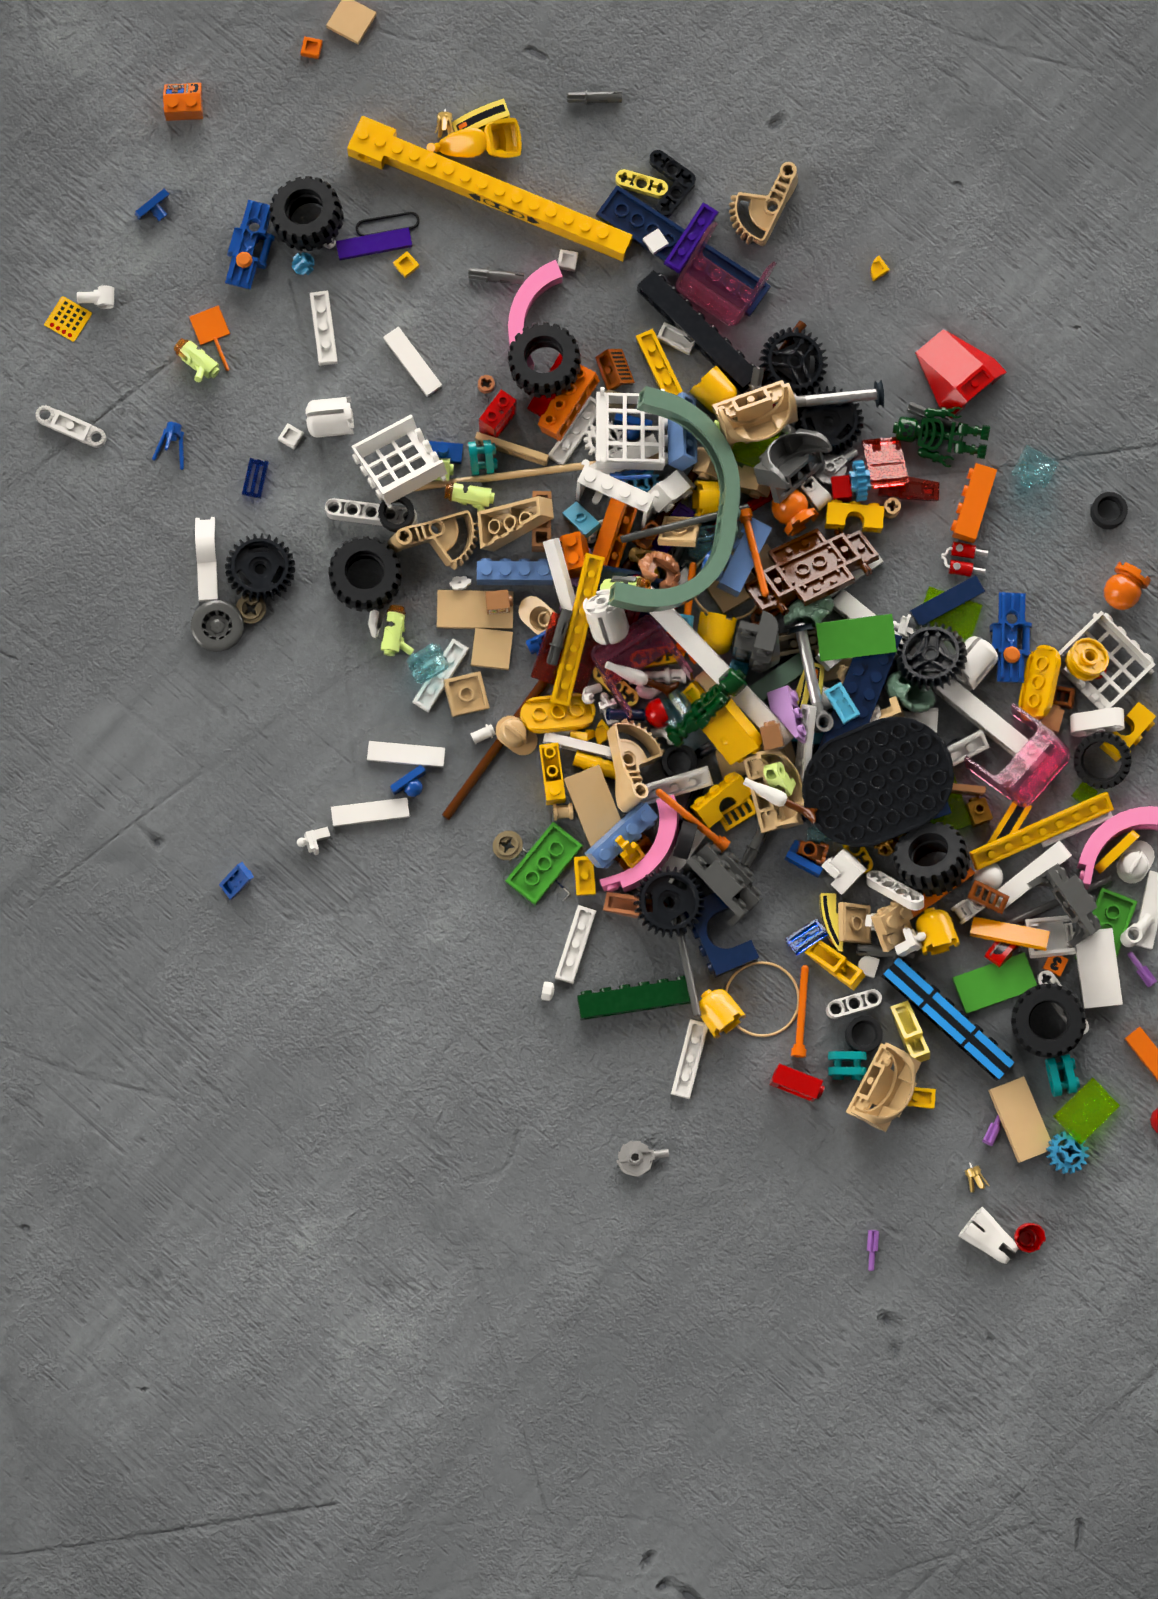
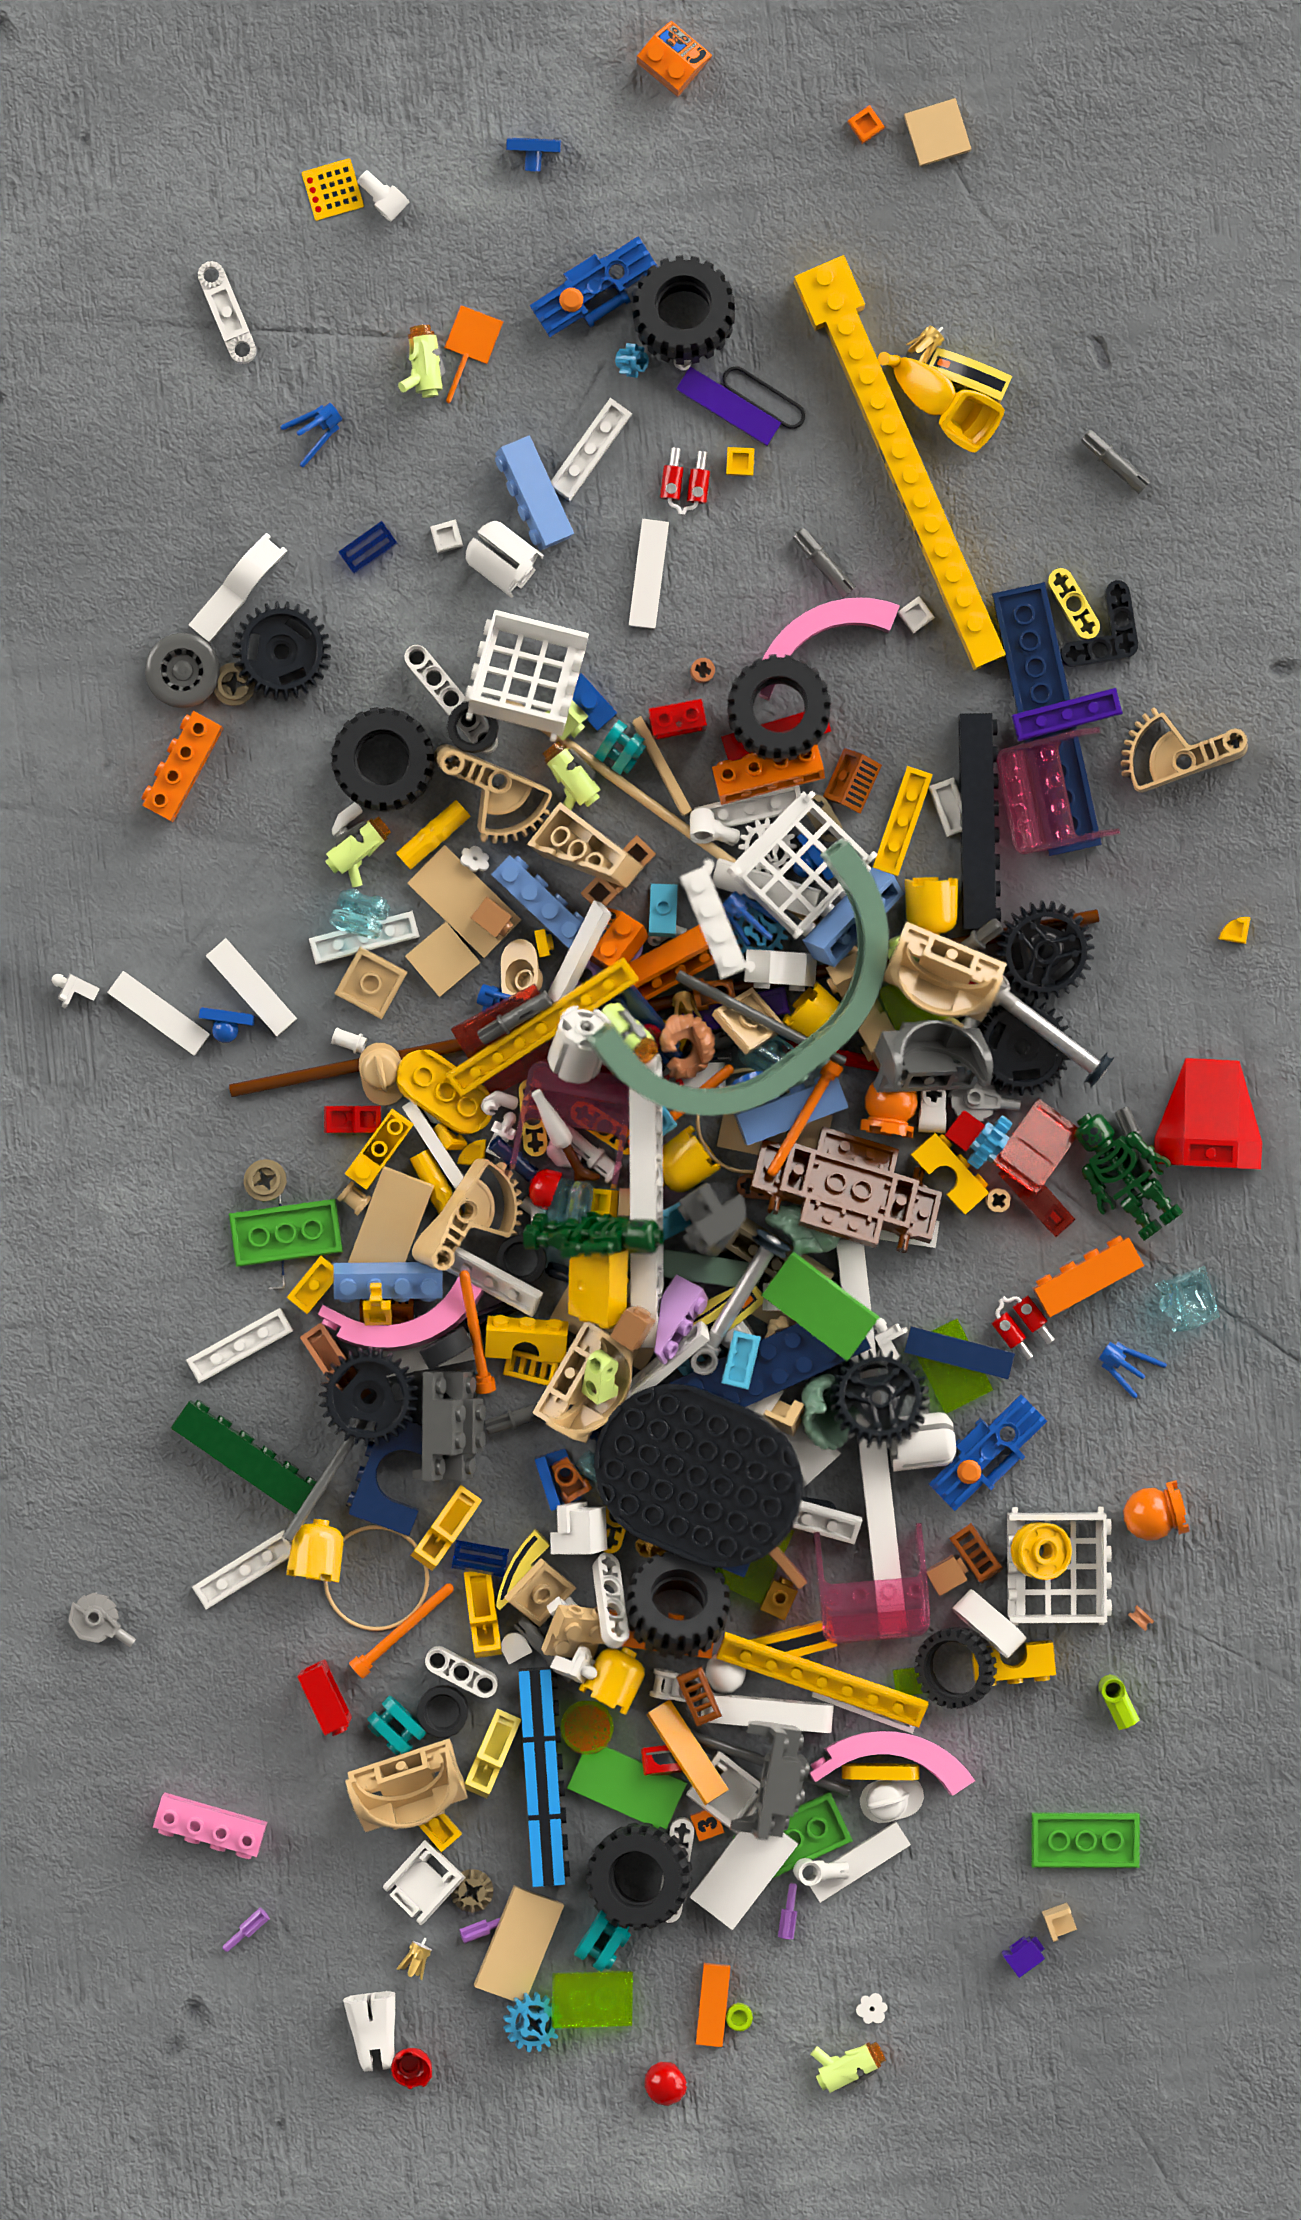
camera: 50 degrees right, 10 degrees up
(263, 673) = (182, 766): none -> orange brick
(315, 372) = (534, 493): none -> medium blue brick
(380, 303) = (697, 485): none -> red piece
(426, 590) = (433, 834): none -> yellow axle
(522, 773) = (351, 1119): none -> red slope
(536, 590) = (544, 943): none -> yellow plate
(548, 991) = (165, 1367): white tile -> none
(565, 457) = (707, 829): none -> white pin
(655, 241) = (1024, 683): white tile -> none
(773, 937) = (446, 1528): none -> yellow slope
(780, 799) = (580, 1398): white piece -> none
(801, 1209) = (210, 1825): none -> bright pink brick
(940, 1137) = (421, 1885): none -> white container
(946, 971) = (587, 1727): none -> clear neon green tile
(961, 1119) = (484, 1894): none -> dark tan gear
(1026, 531) = (1114, 1356): none -> blue plant
(1040, 681) = (970, 1527): yellow tile -> none
(1119, 500) = (1241, 1424): black tyre -> none

